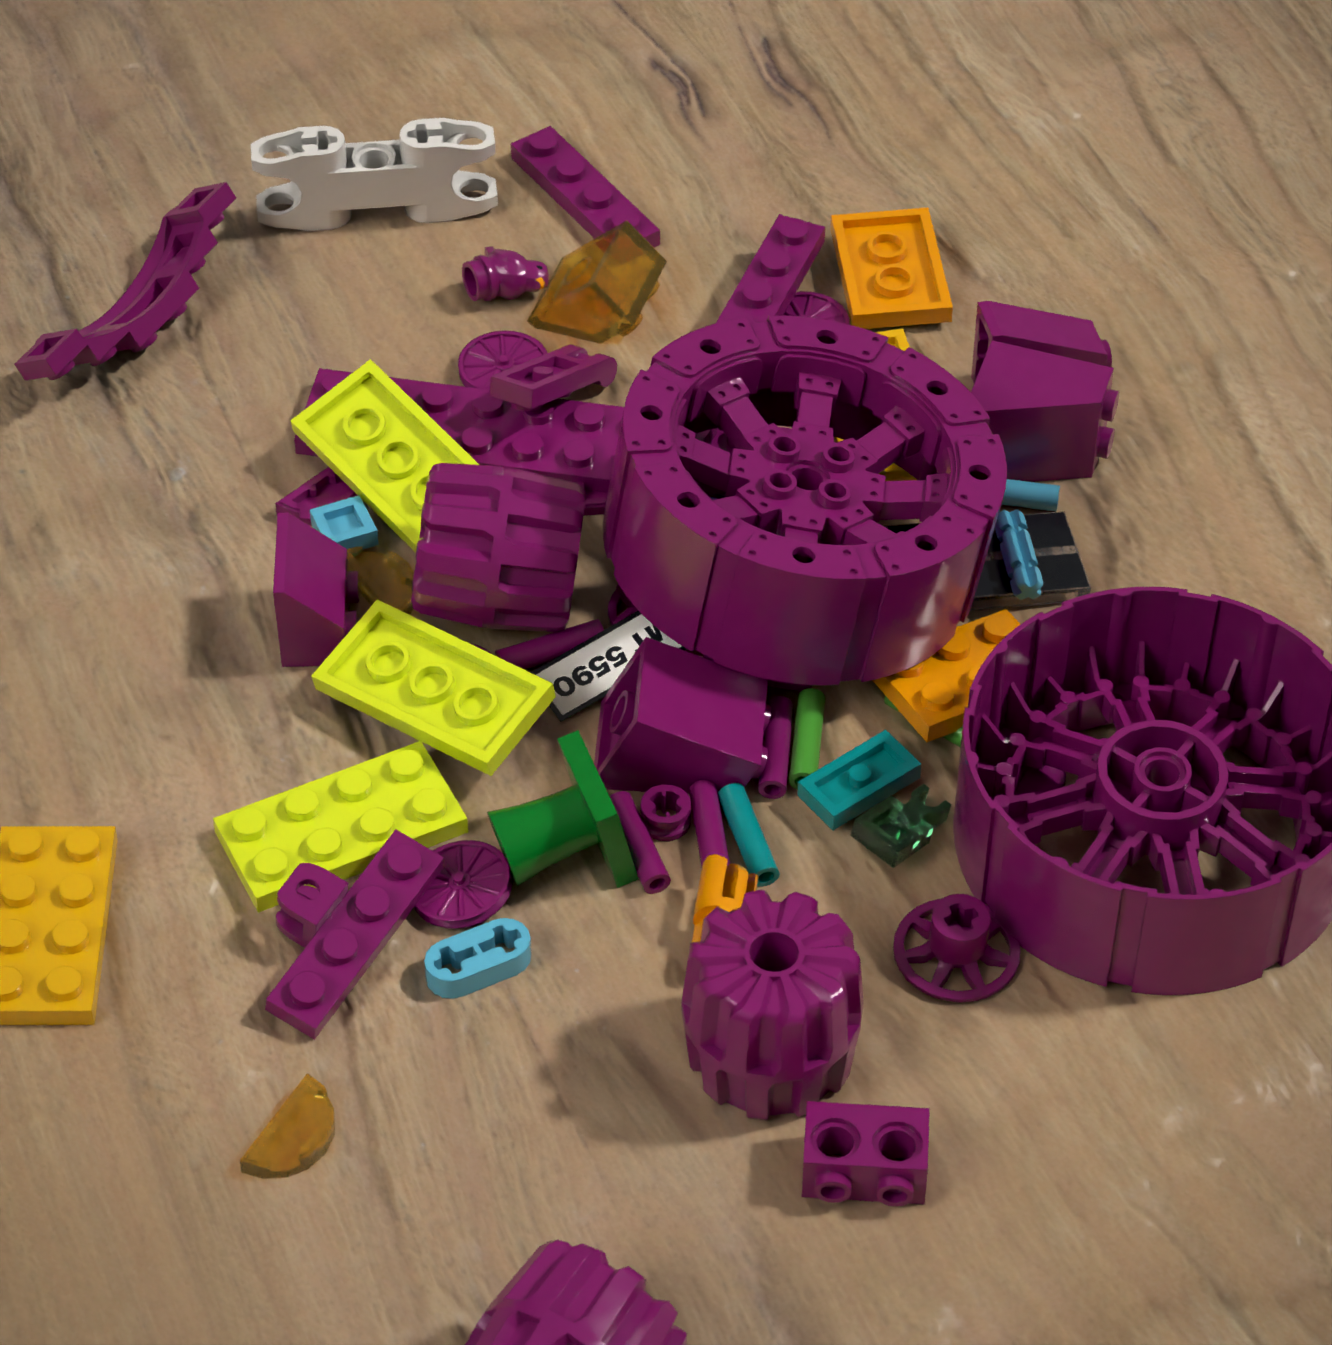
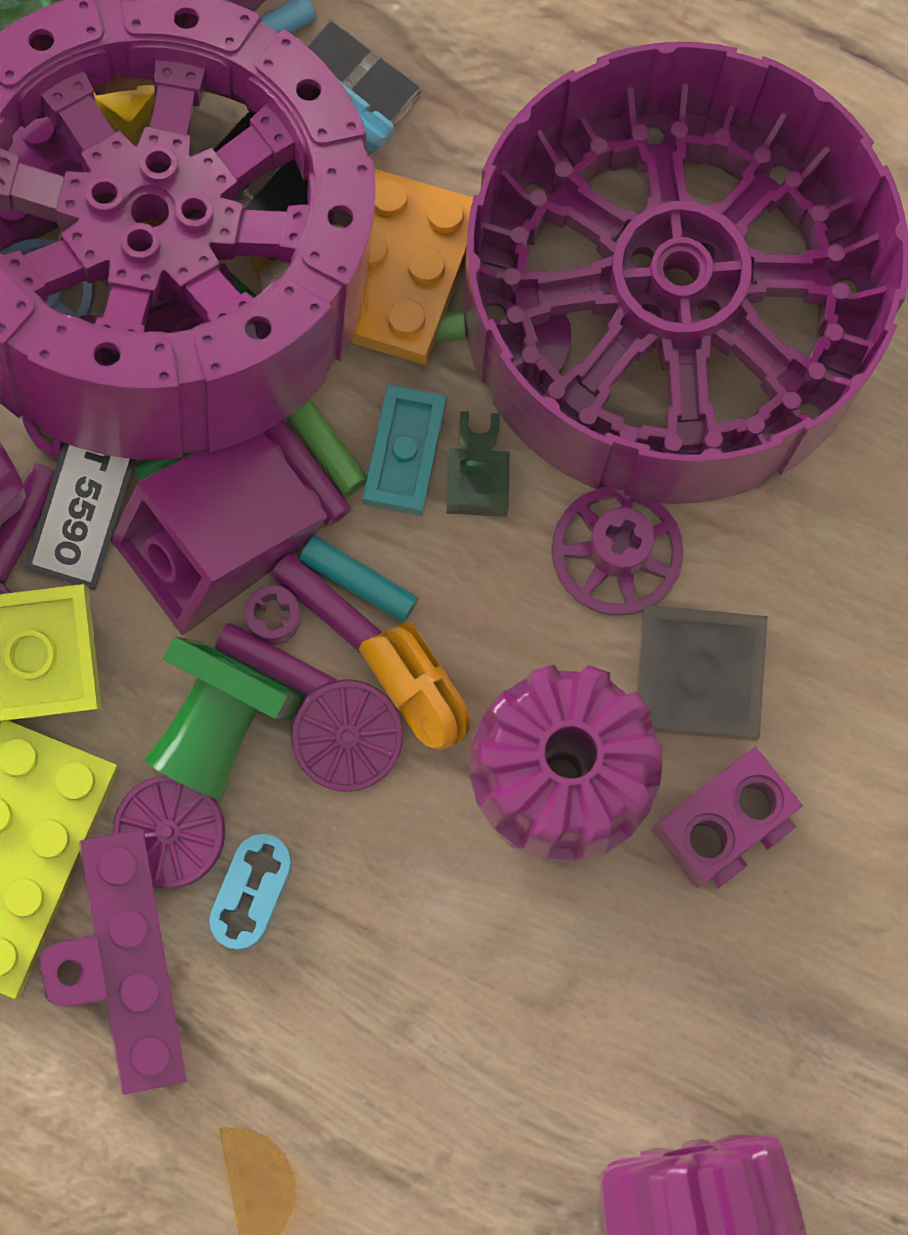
camera: 45 degrees left, 30 degrees up
(642, 913) = (346, 735): none -> magenta wheel
(940, 1055) = (702, 671): none -> clear smoke plate

